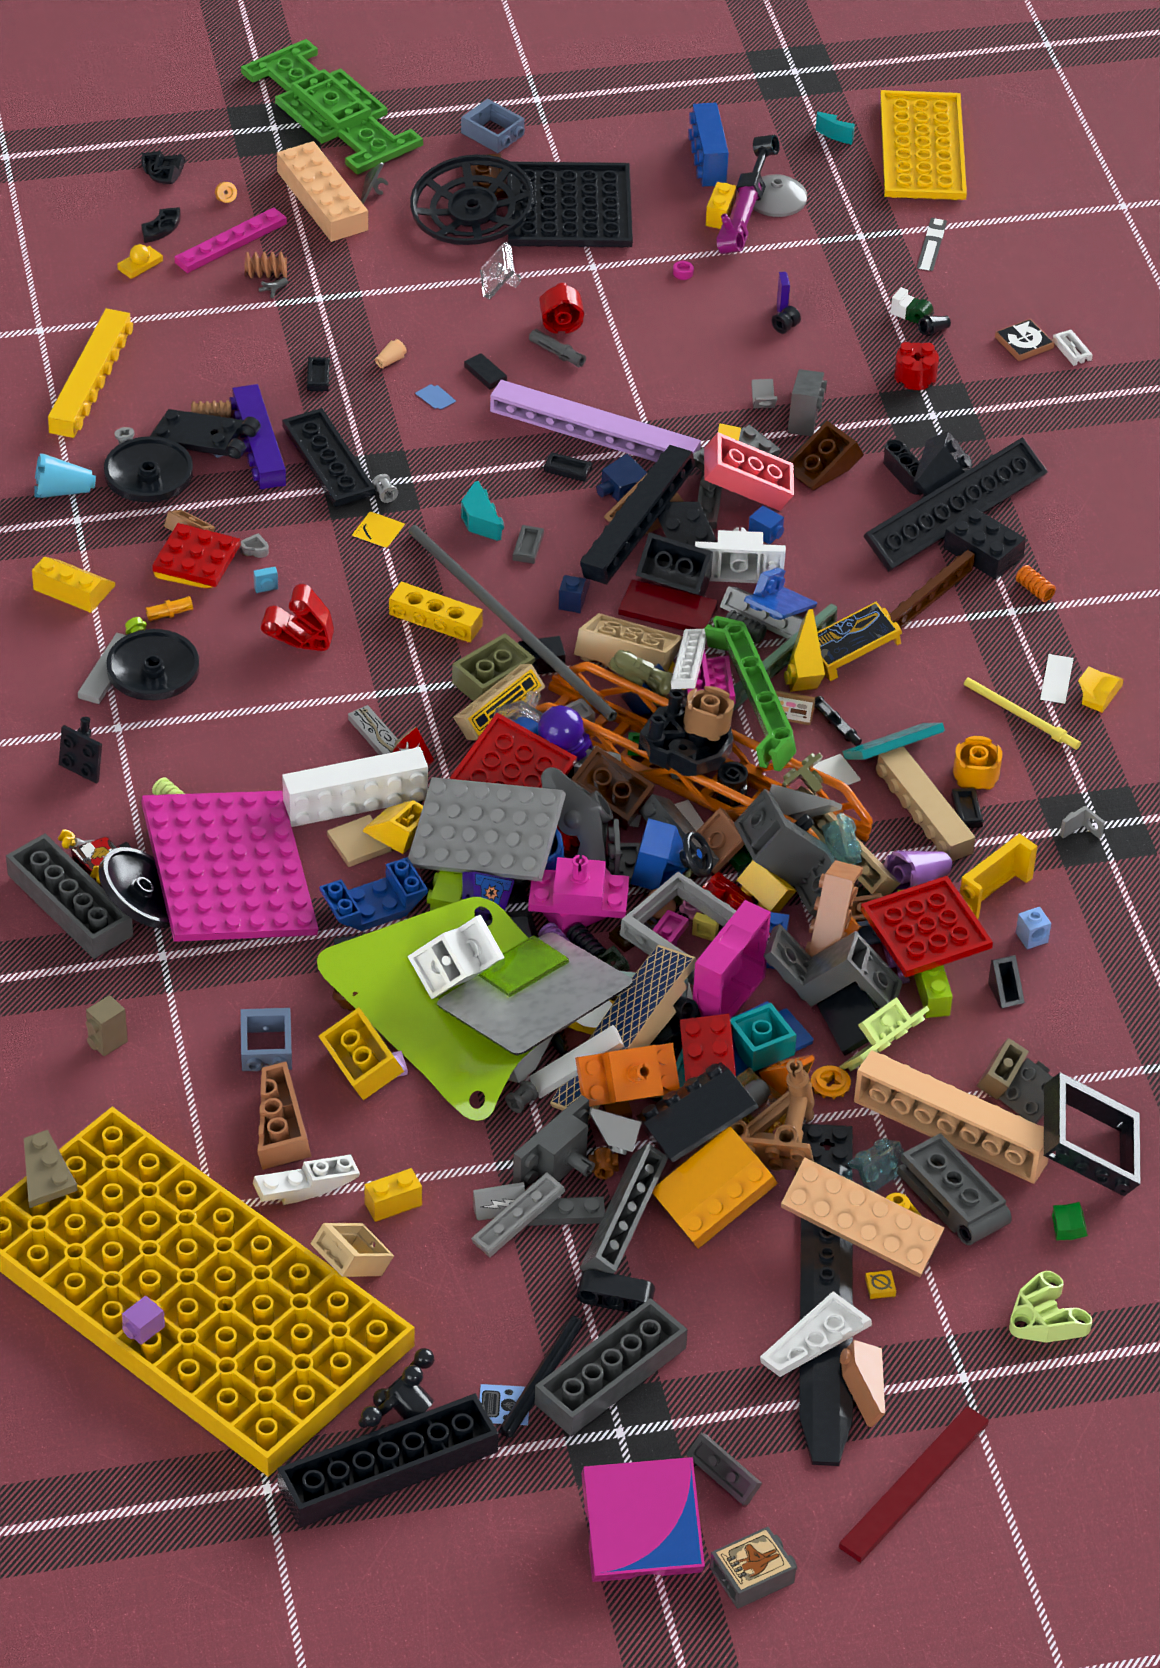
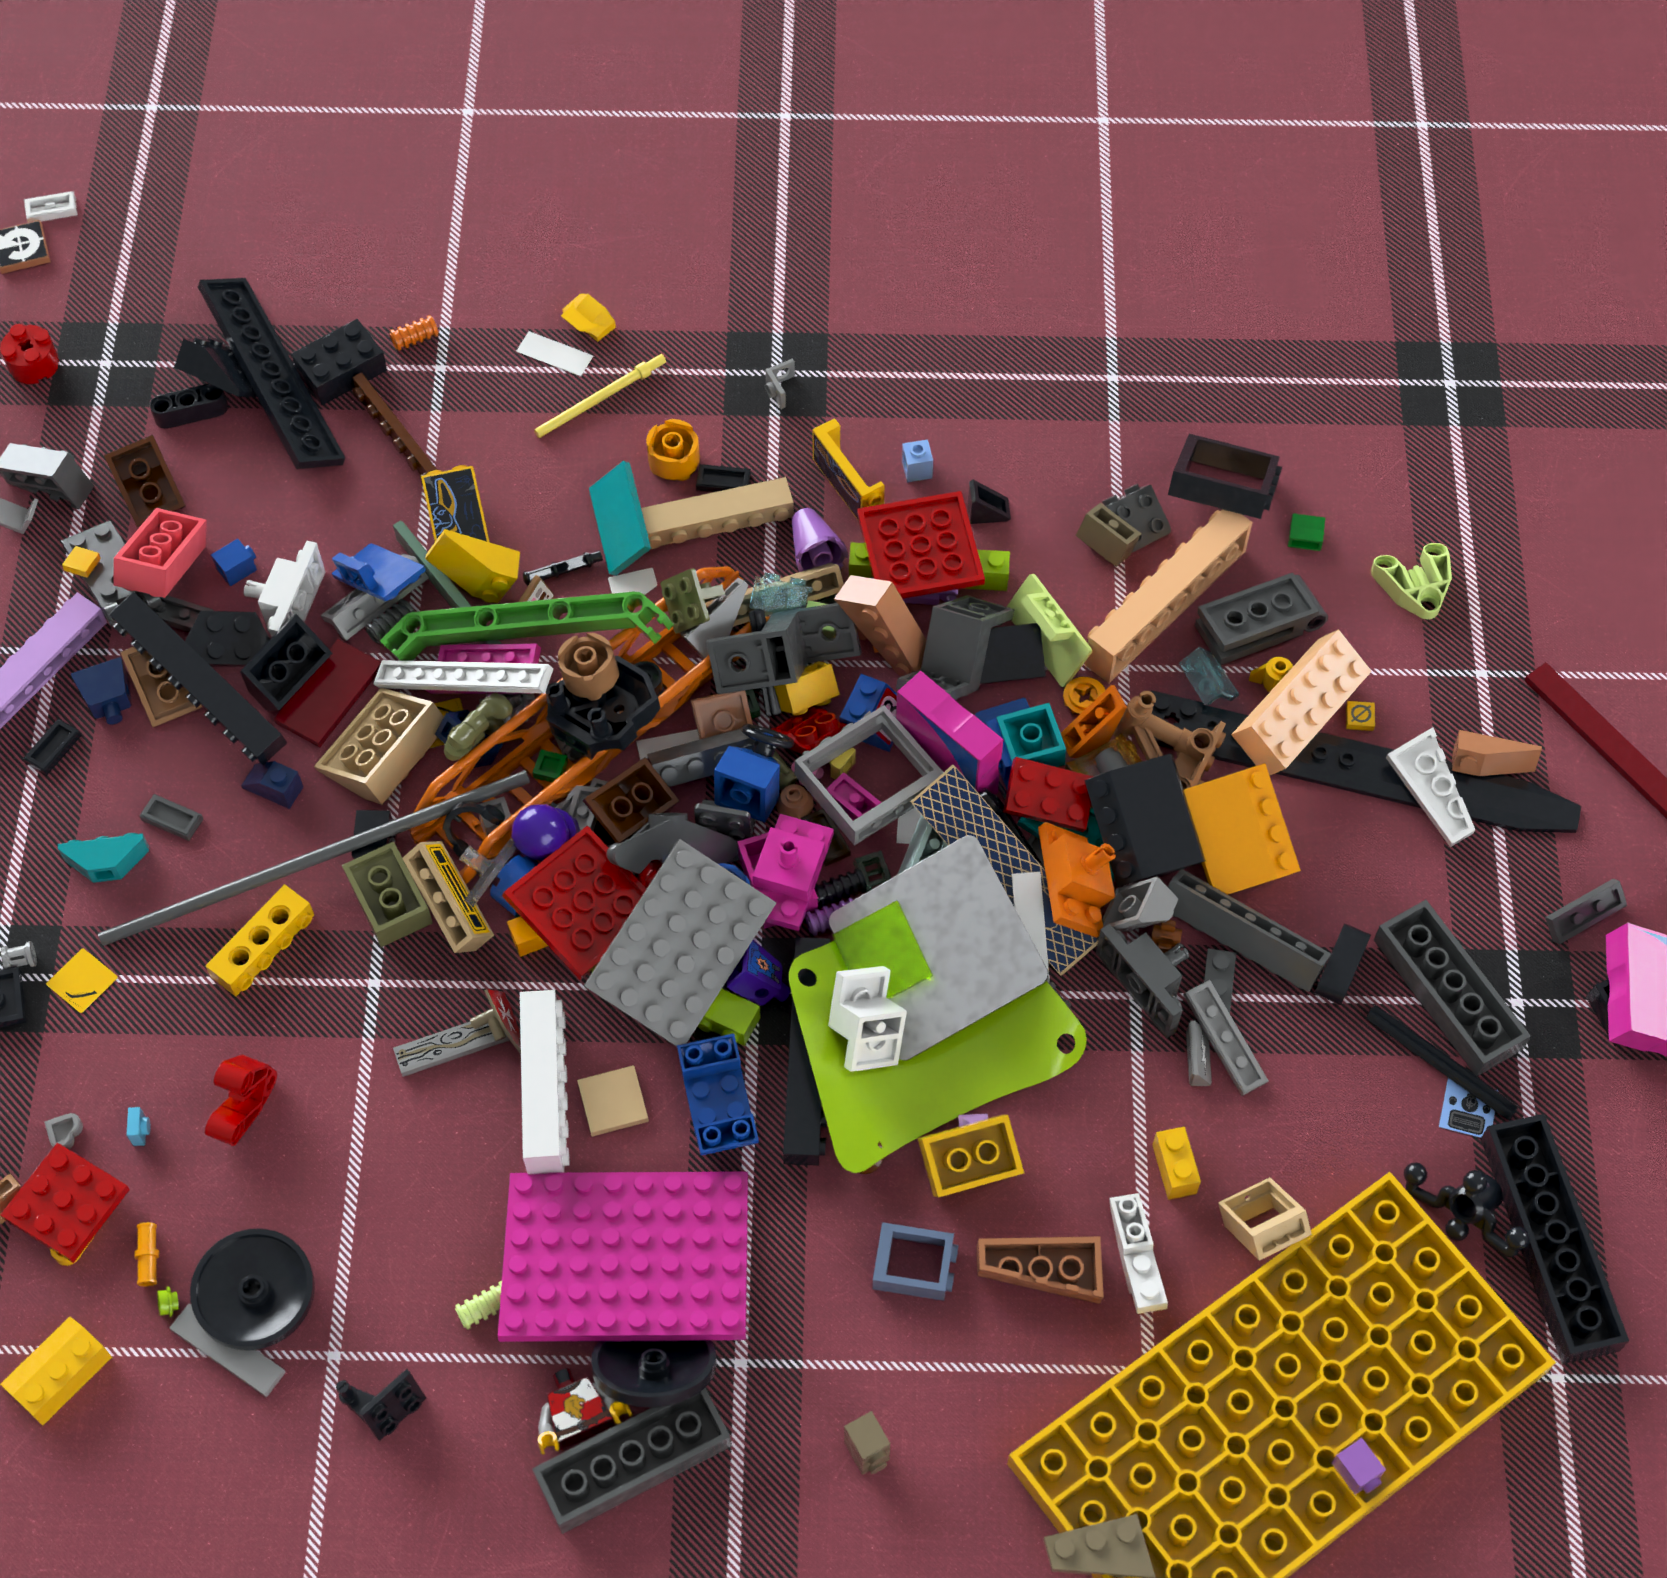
camera: 75 degrees left, 15 degrees up
(396, 825) = (614, 1046): yellow slope -> none
(571, 700) = (488, 812): none -> black piece

